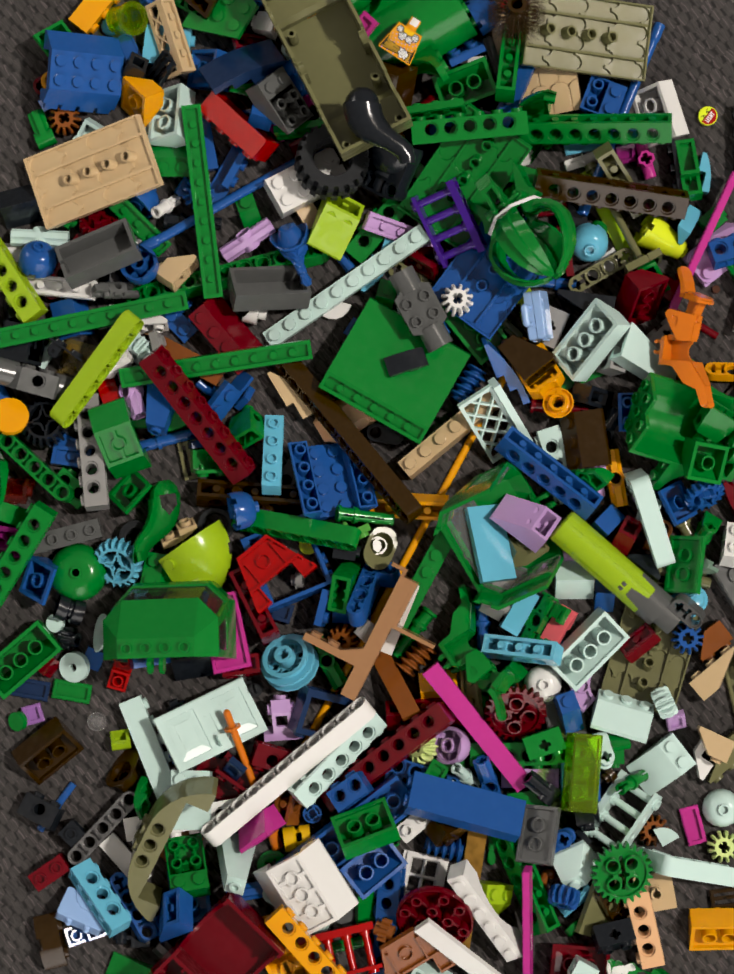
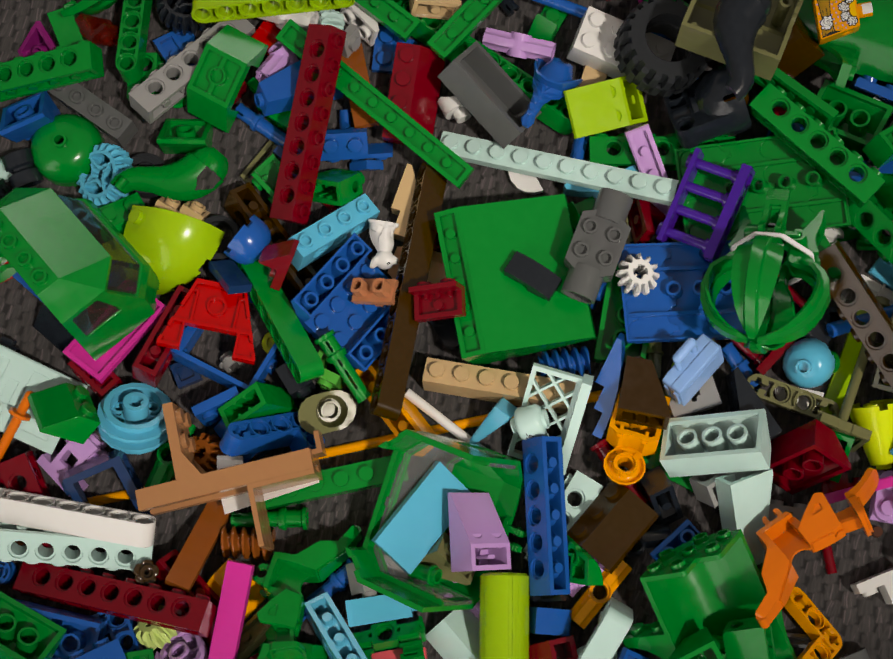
camera: 60 degrees right, 10 degrees down
(251, 538) = (230, 276): none -> dark blue tile
(255, 699) = (65, 412): none -> green slope
(270, 501) = (279, 258): none -> dark red slope
(301, 427) = (383, 239): none -> white animal
(334, 460) = (374, 291): none -> nougat hips
(352, 795) = (44, 591): blue brick -> none
(376, 429) = (438, 300): none -> dark red bracket
(383, 727) = (139, 570): none -> dark brown plate
(442, 484) = (437, 416): none -> white bar
(467, 451) = (499, 415): none -> medium azure slope
(488, 435) = (530, 421): none -> light aqua head
(525, 566) = (430, 574): none -> green pin

